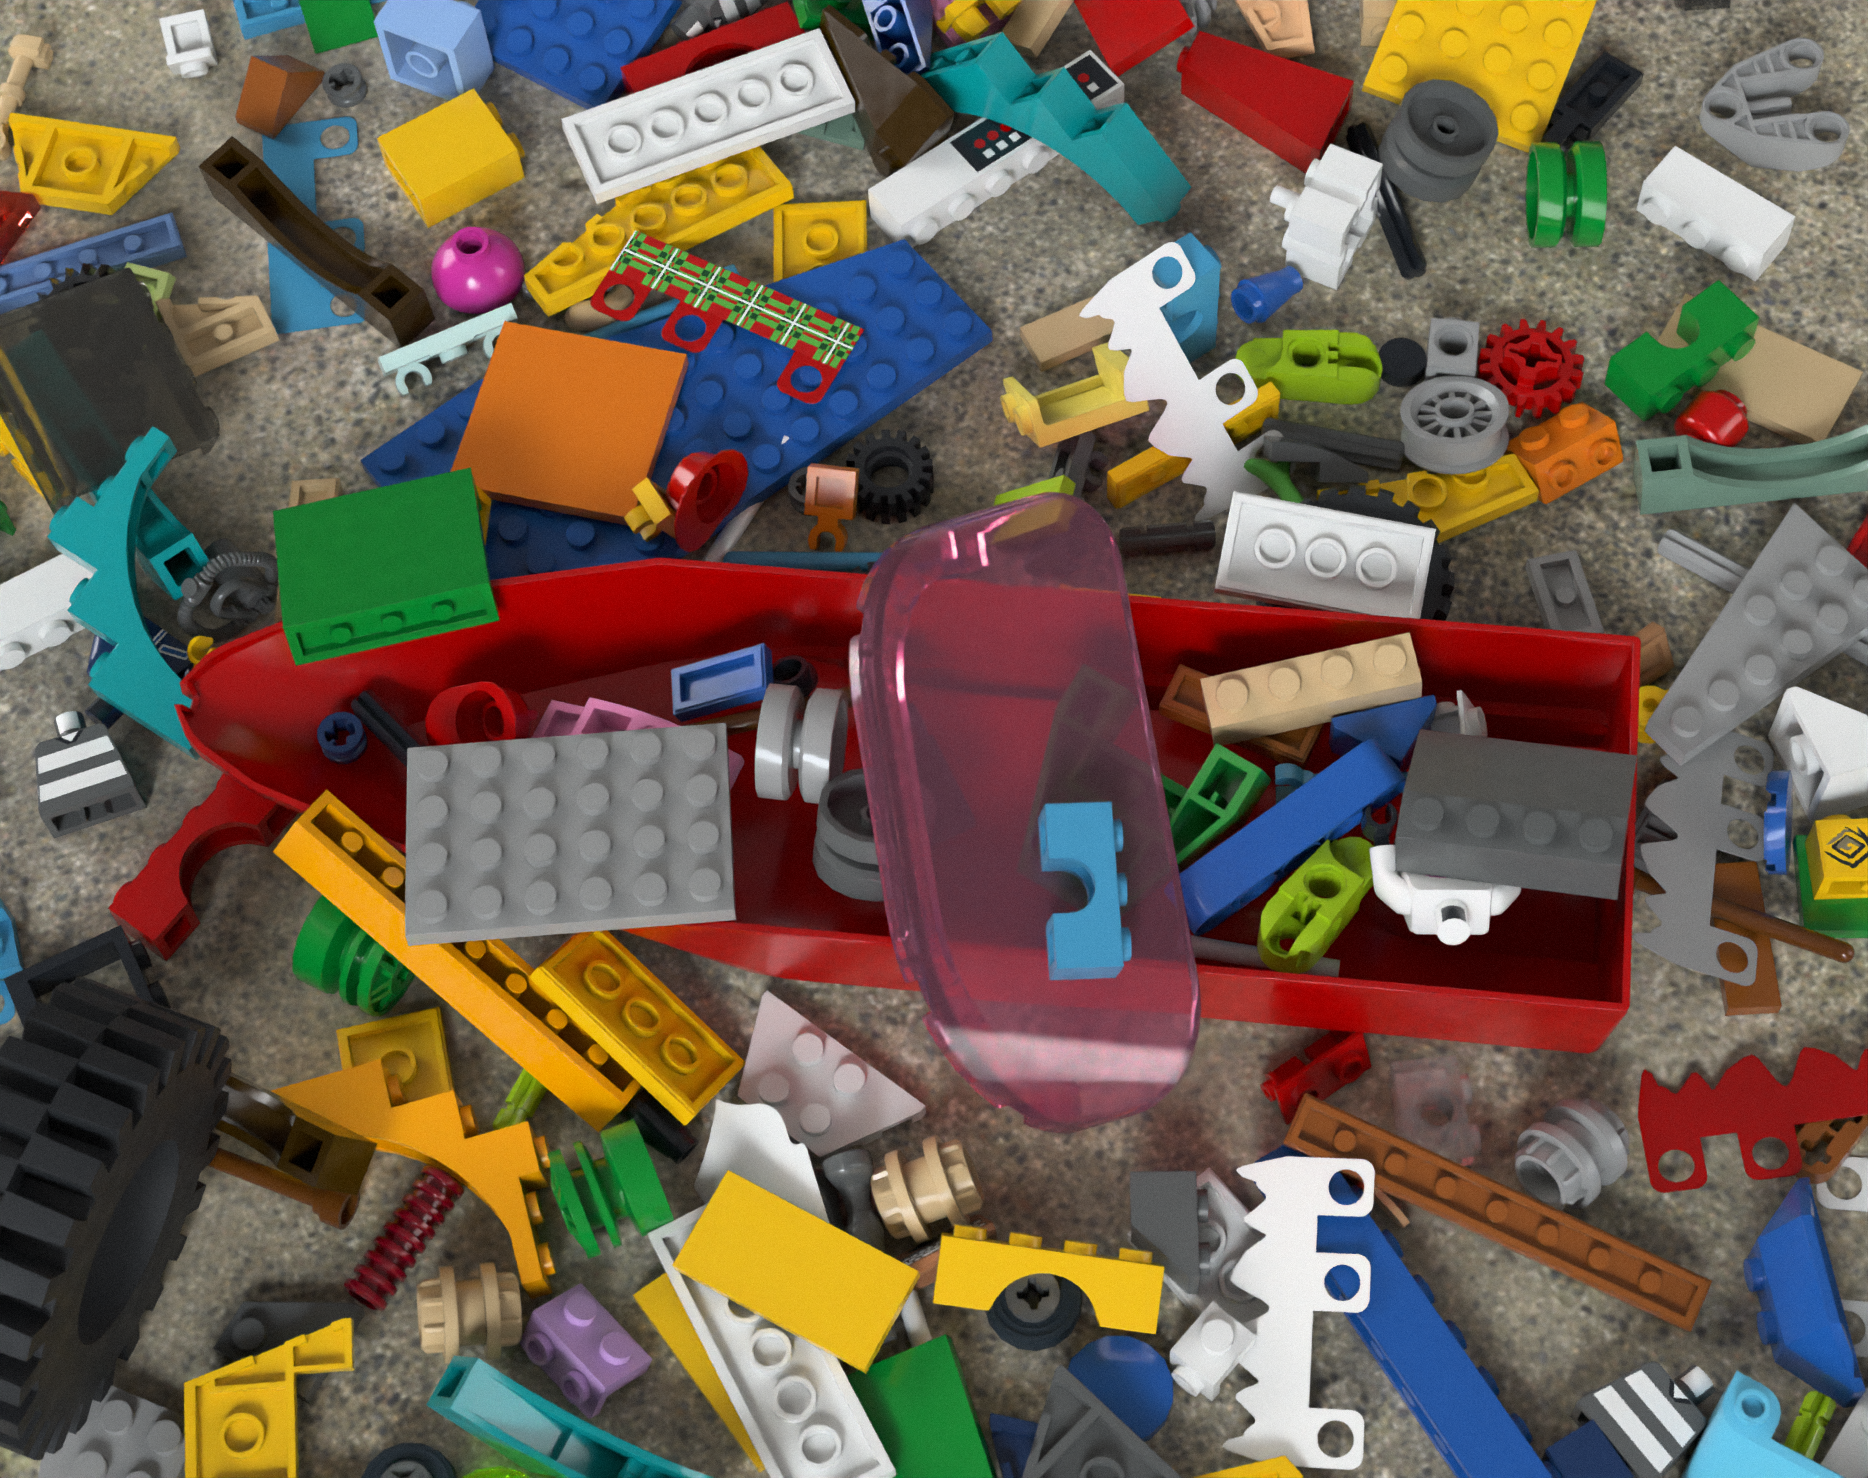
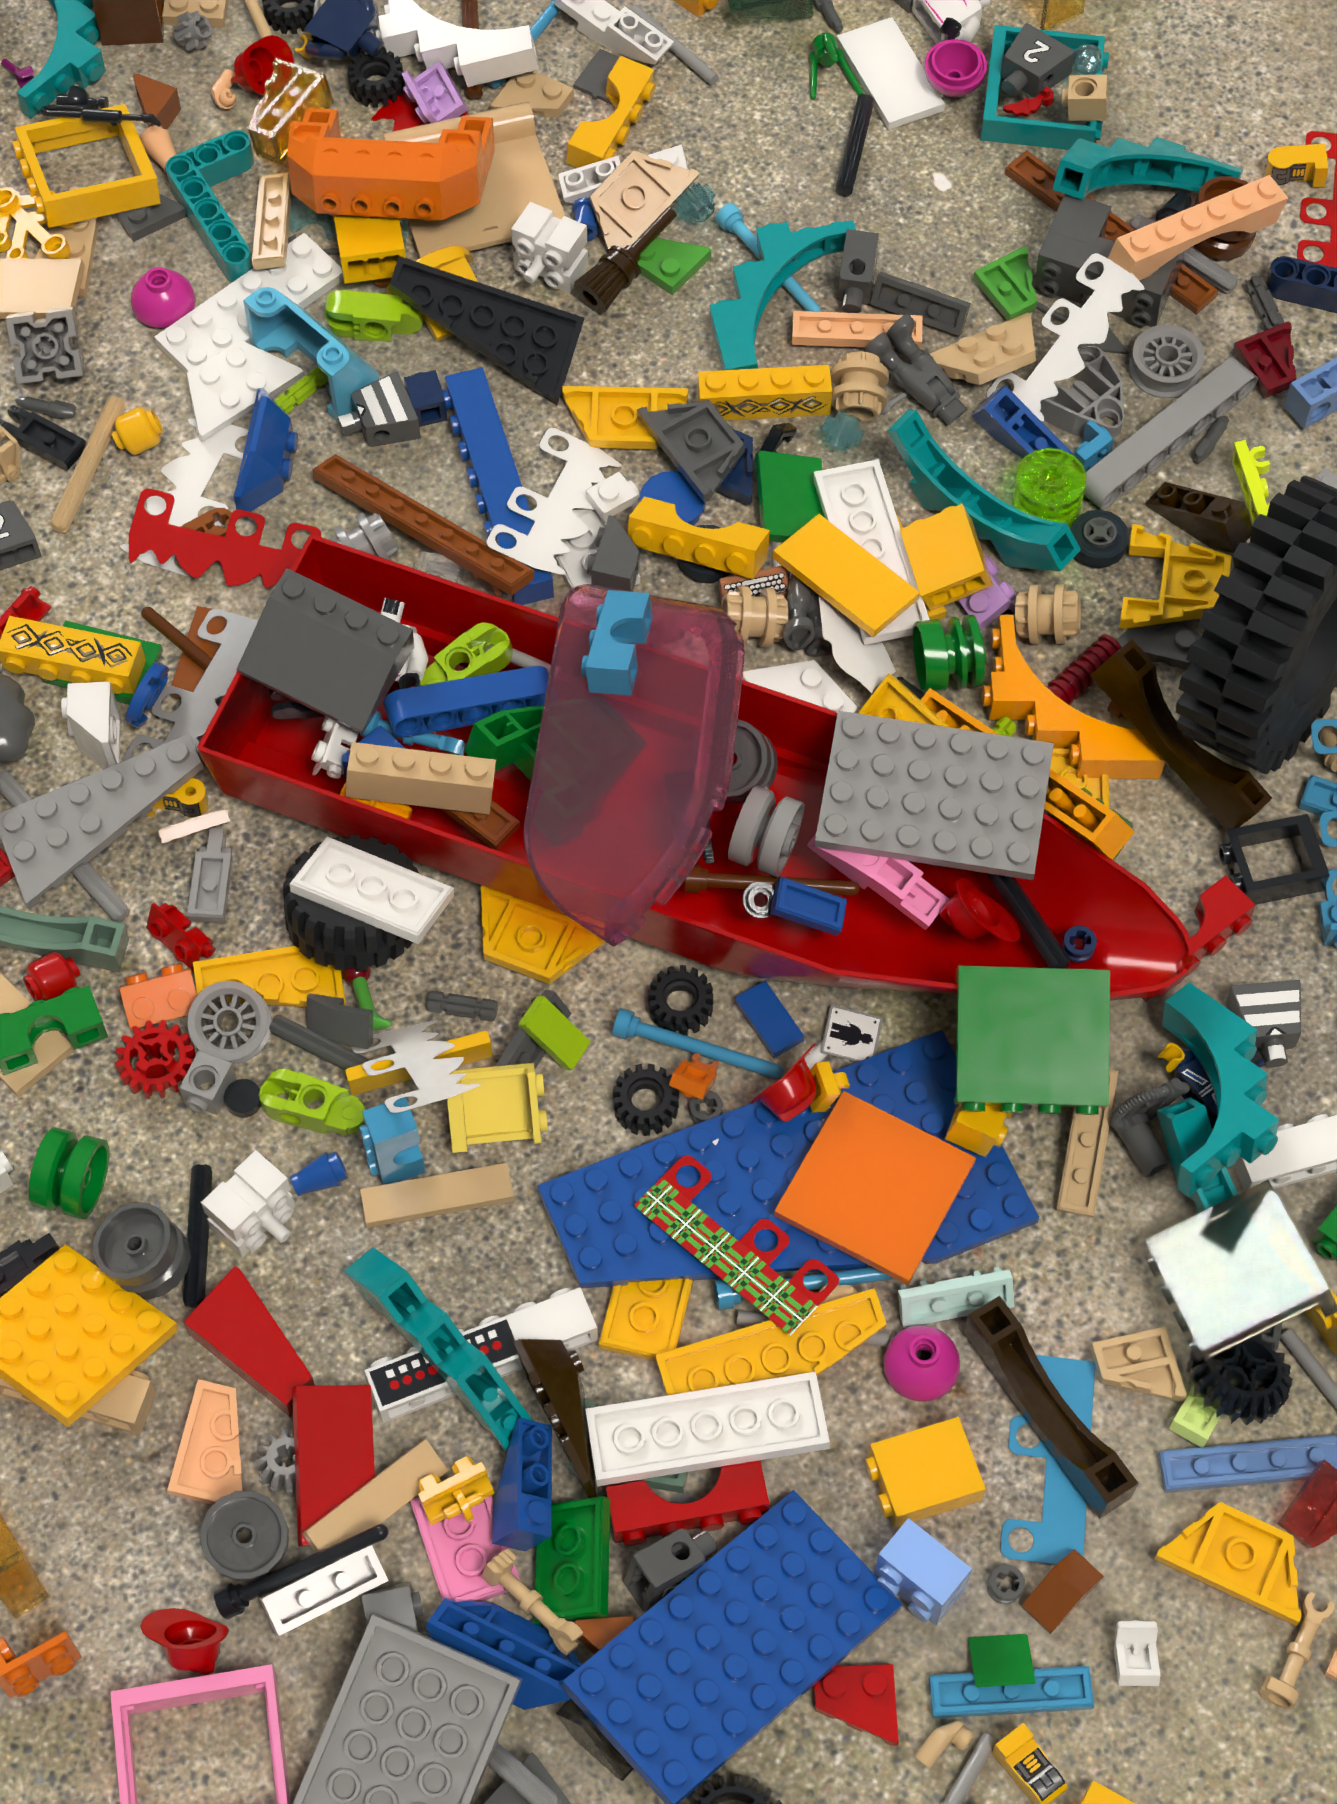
camera: 170 degrees left, 0 degrees up
(644, 1351) = (946, 557): none -> yellow brick
(1558, 521) = (169, 927): none -> red hinge

